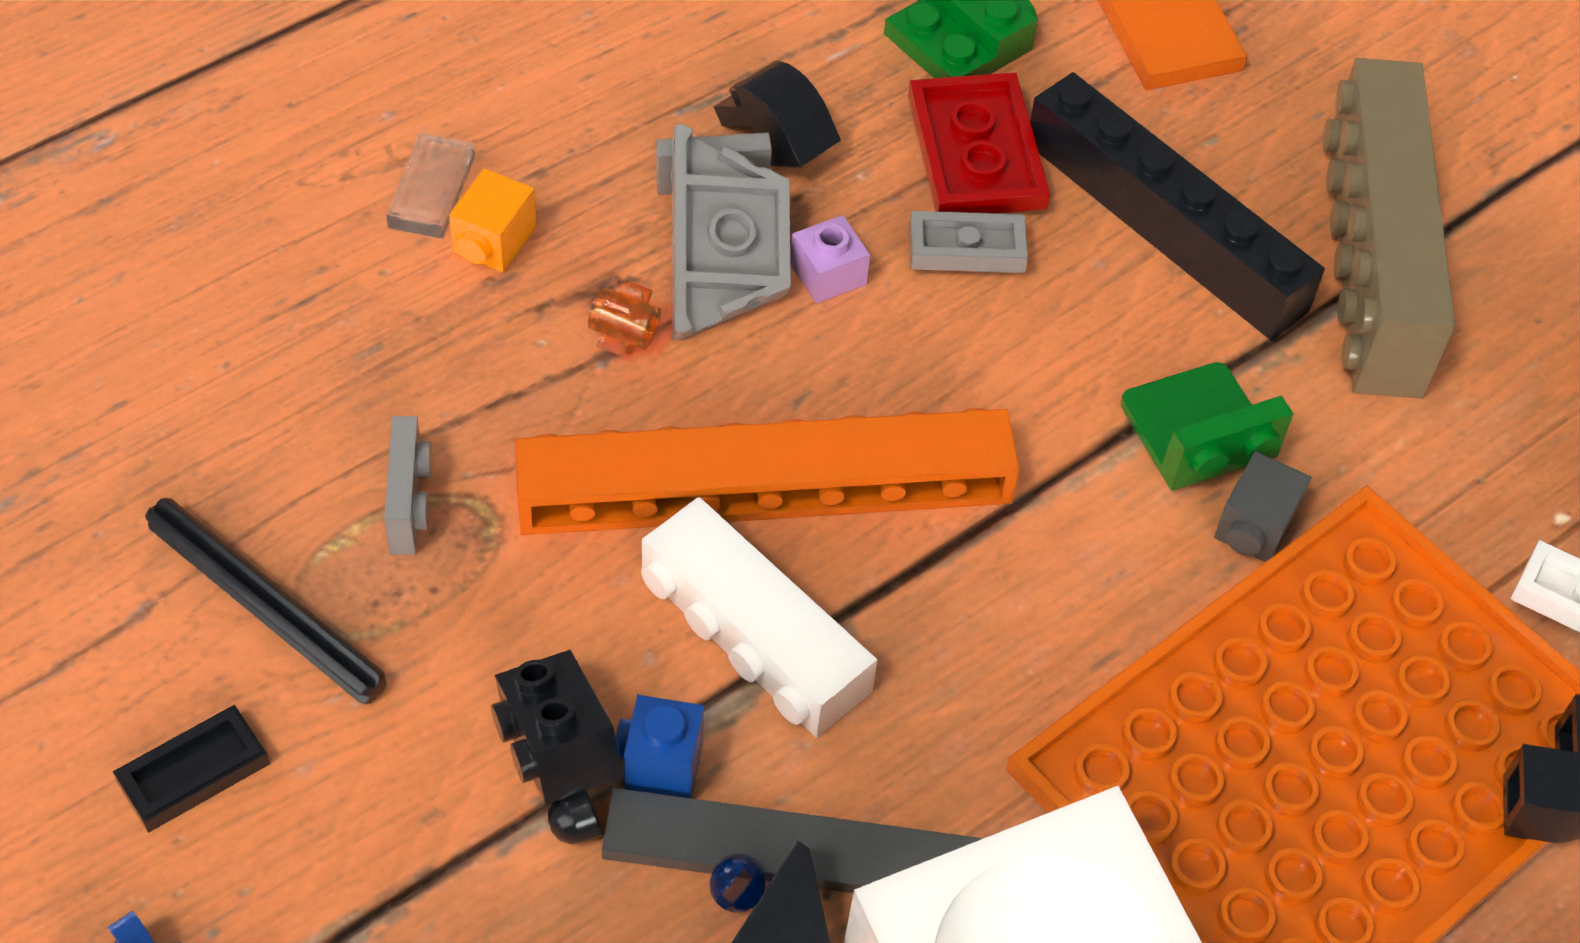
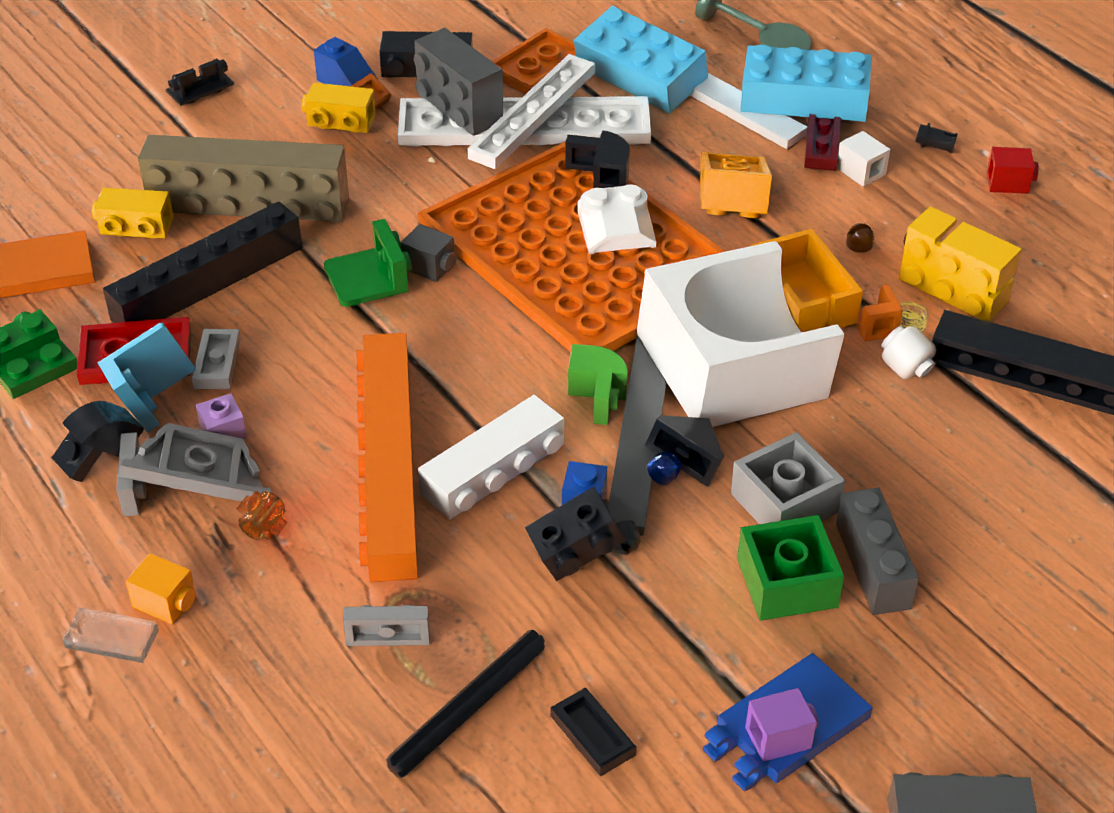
camera: 85 degrees left, 10 degrees down
(875, 131) = (145, 370): none -> medium azure bracket
(957, 788) = (600, 375): none -> bright green brick
(1285, 101) = (133, 212): none -> yellow brick
(1390, 807) = (616, 219): none -> white slope

